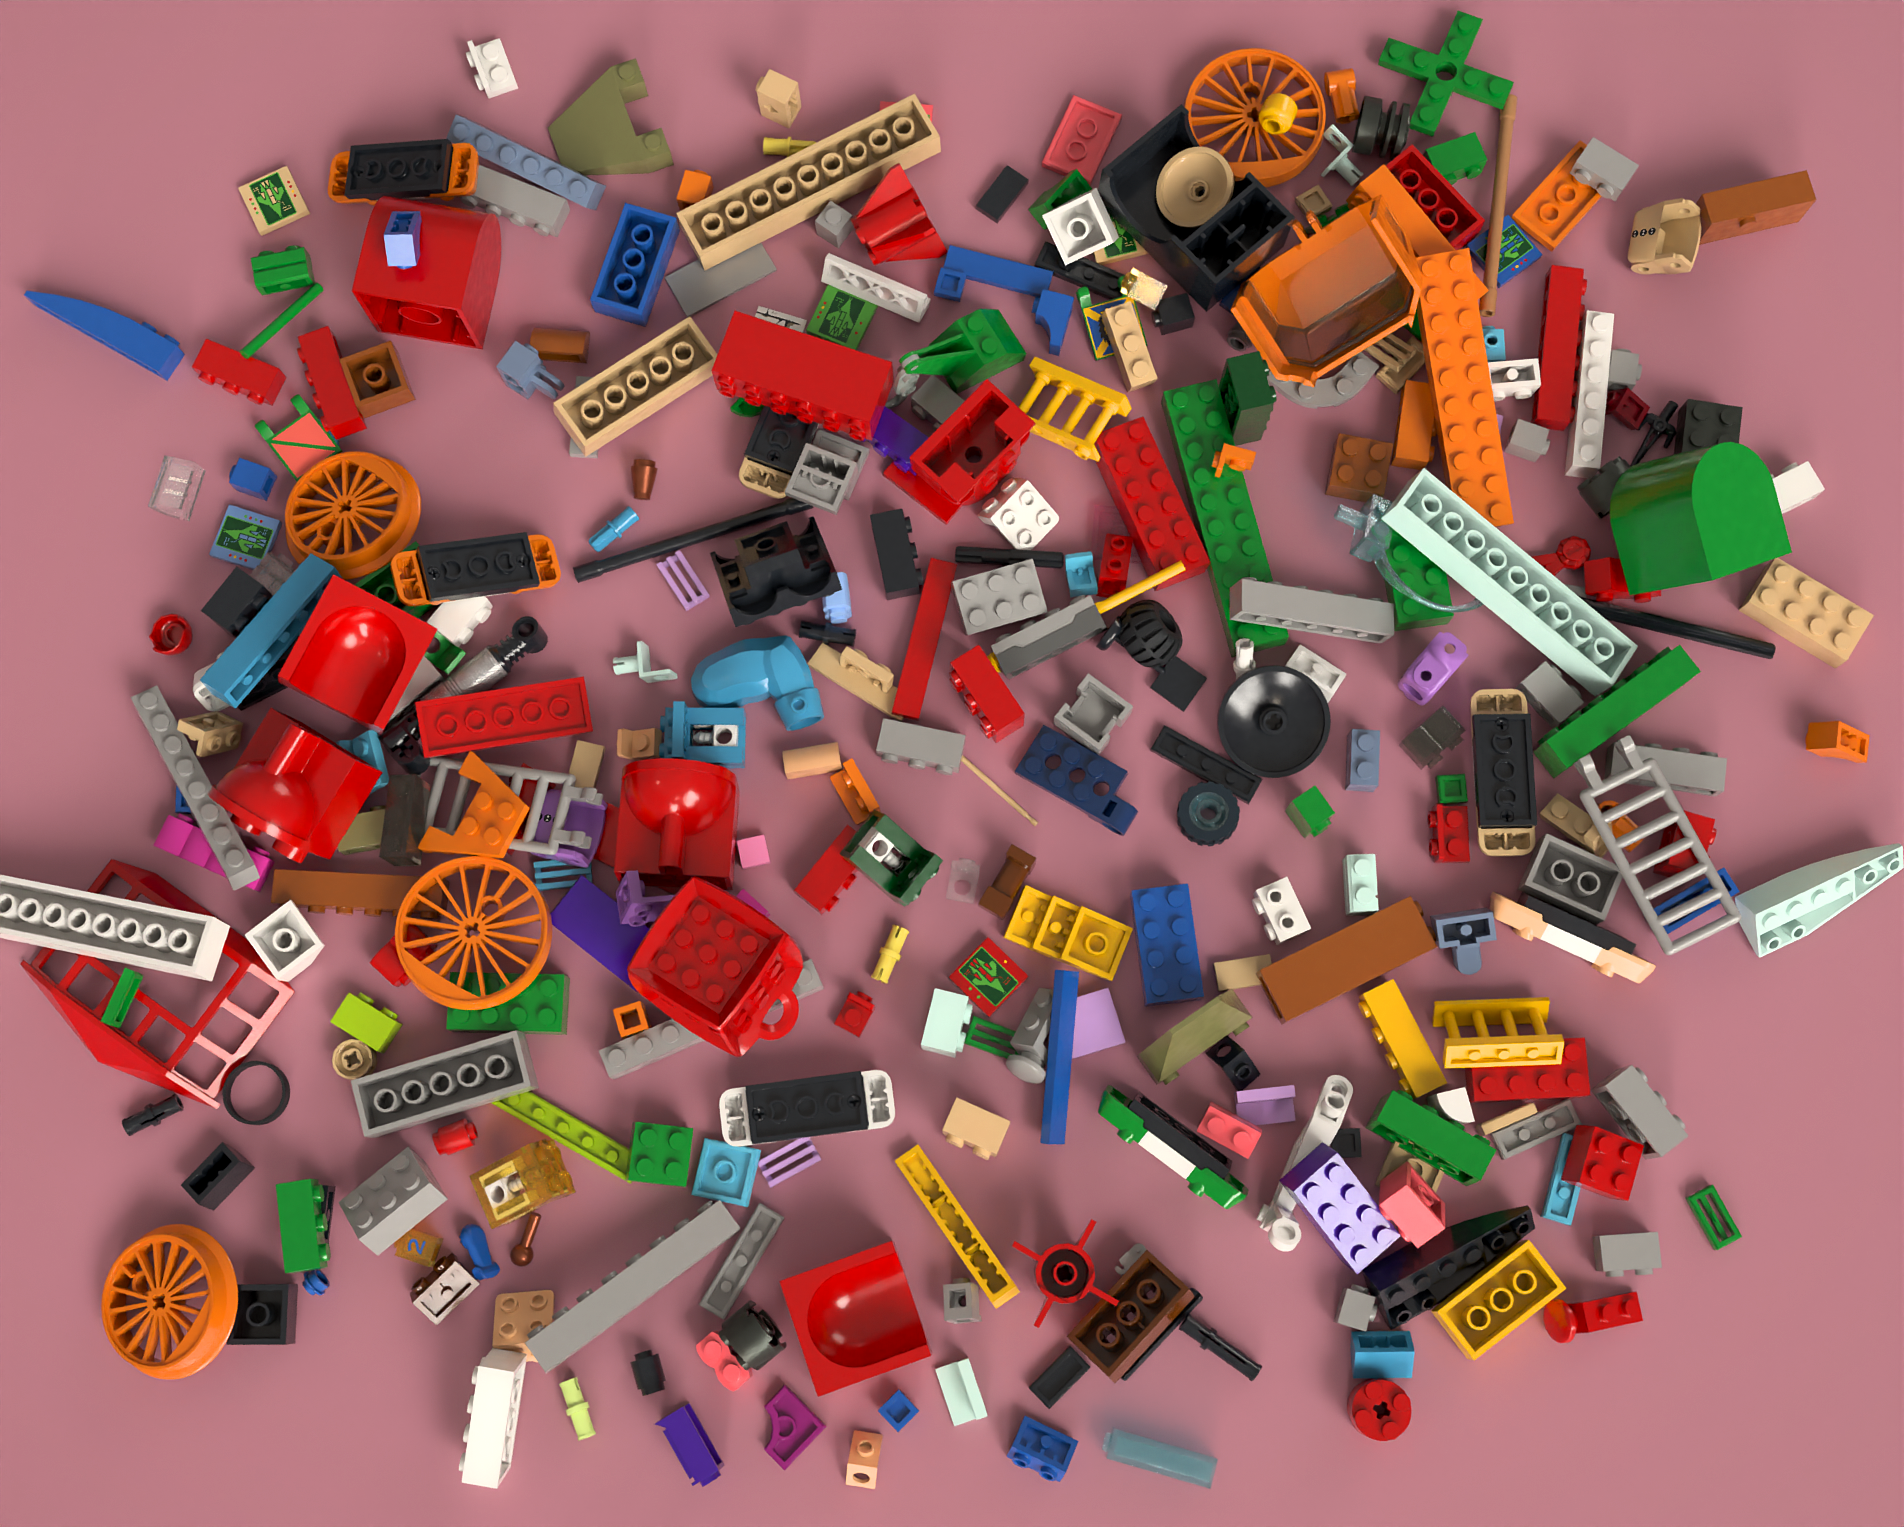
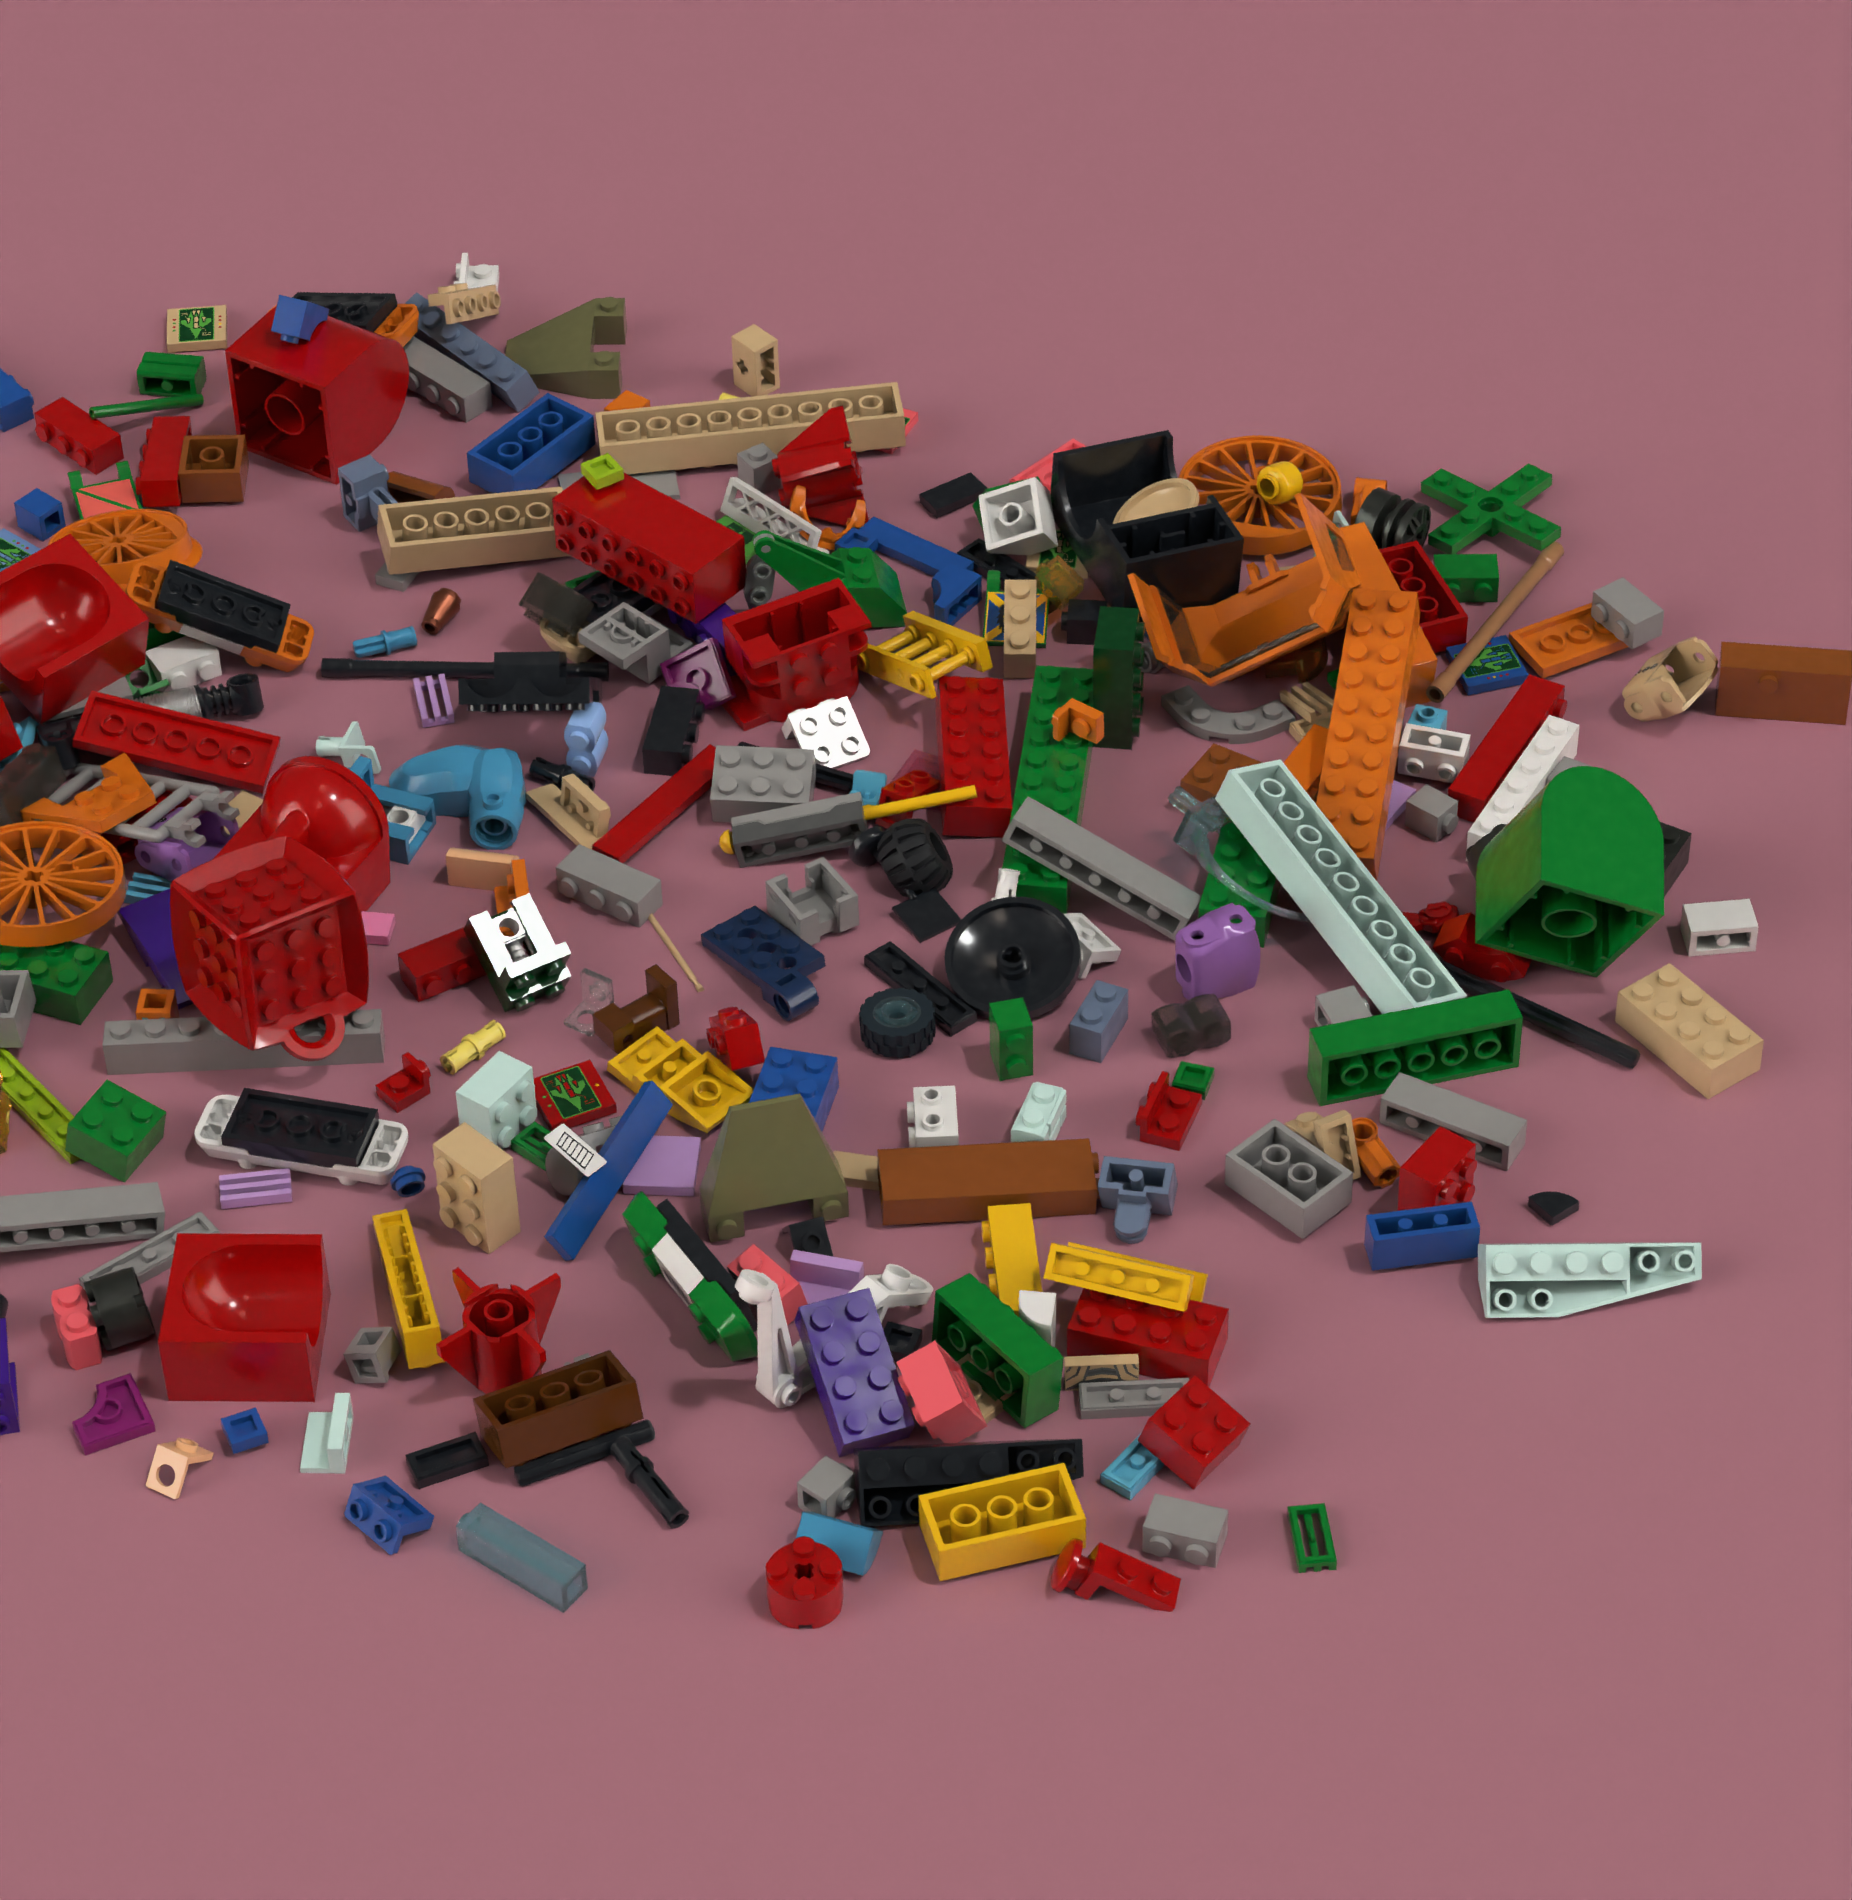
camera: 20 degrees right, 35 degrees down
(501, 112) = (466, 303): none -> tan bracket
(726, 1172) = (183, 1173): medium azure tile -> none
(744, 330) = (602, 471): none -> lime plate
(751, 464) = (556, 605): none -> clear smoke brick
(893, 485) = (701, 669): none -> magenta tile
(906, 1115) = (408, 1181): none -> blue plate
(926, 287) = (827, 538): none -> orange helmet
(986, 694) = (703, 854): red brick -> none
(1034, 1061) = (575, 1150): none -> white sticker
(1102, 890) = (735, 1038): none -> red brick
(1503, 772) = (1251, 1067): black piece -> none
(1601, 947) = (1262, 1220): piece -> none
(1638, 767) = (1347, 1157): light grey bar -> none
(1640, 1111) = (1263, 1395): light grey brick -> none
(1765, 825) = (1553, 1206): none -> black tile
(1837, 741) = (1672, 1145): orange arch -> none

